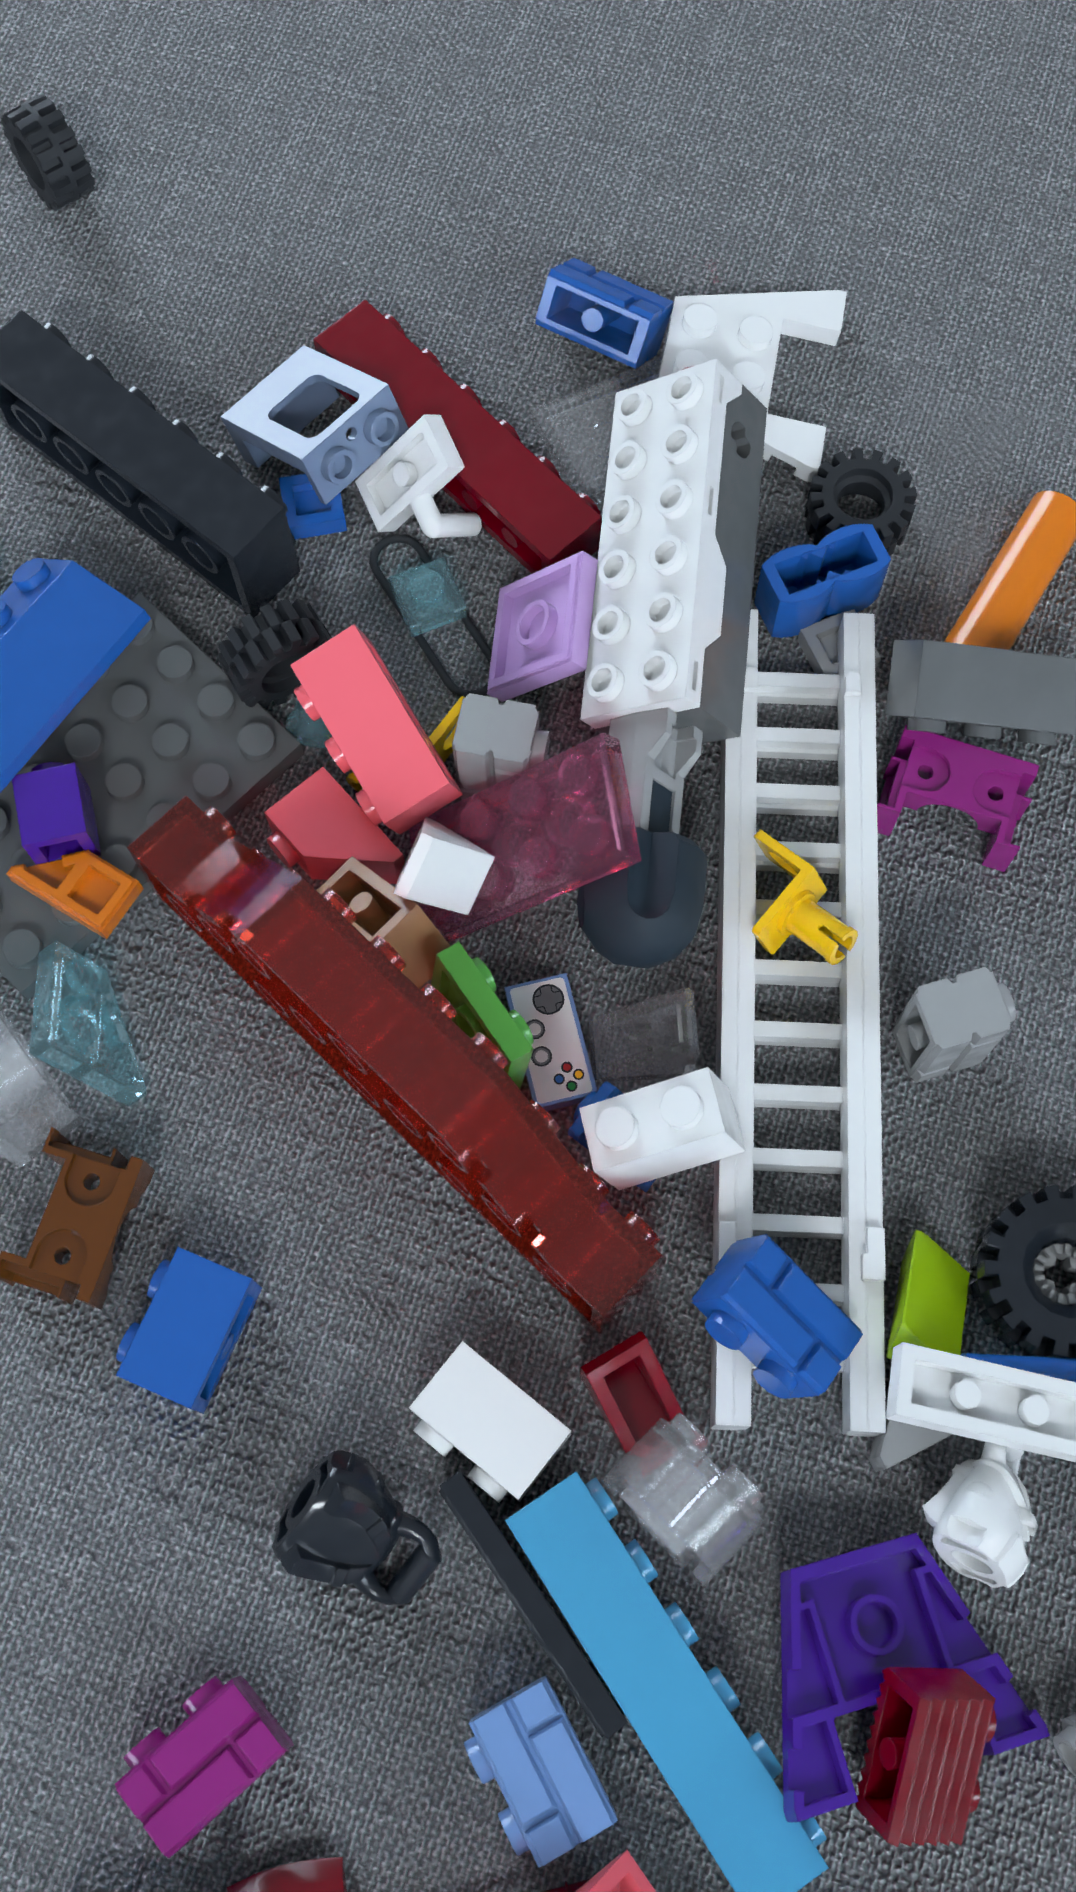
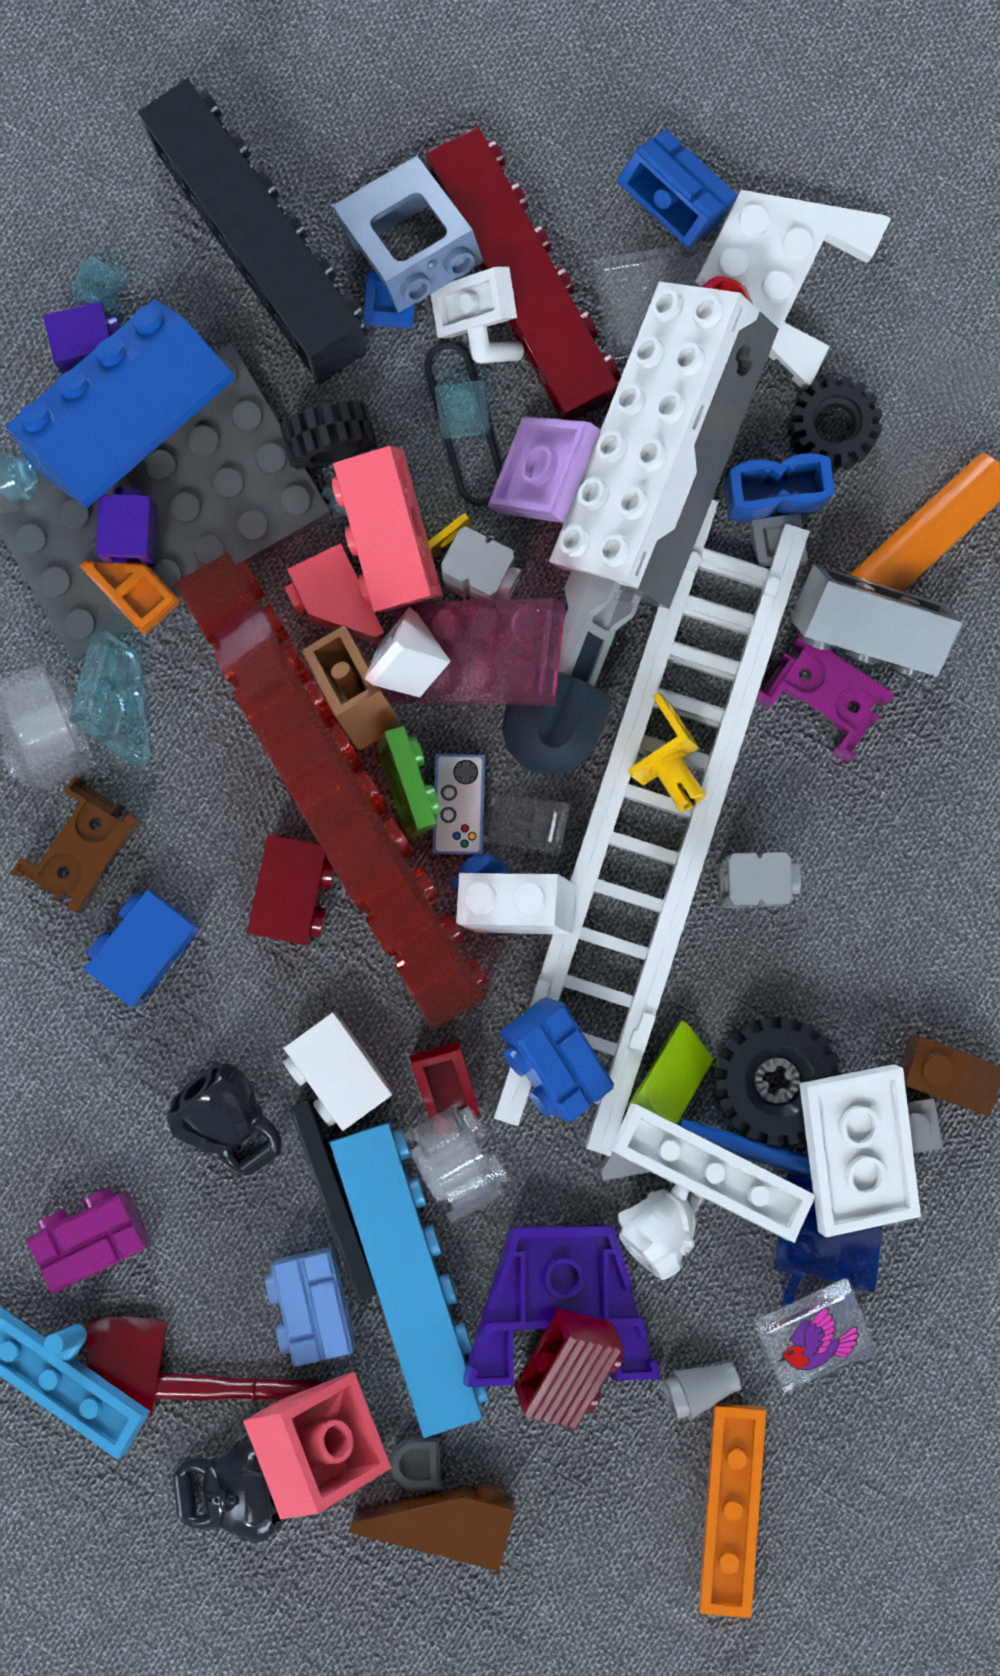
camera: 15 degrees right, 15 degrees up
(366, 1203) = (291, 891): none -> dark red brick

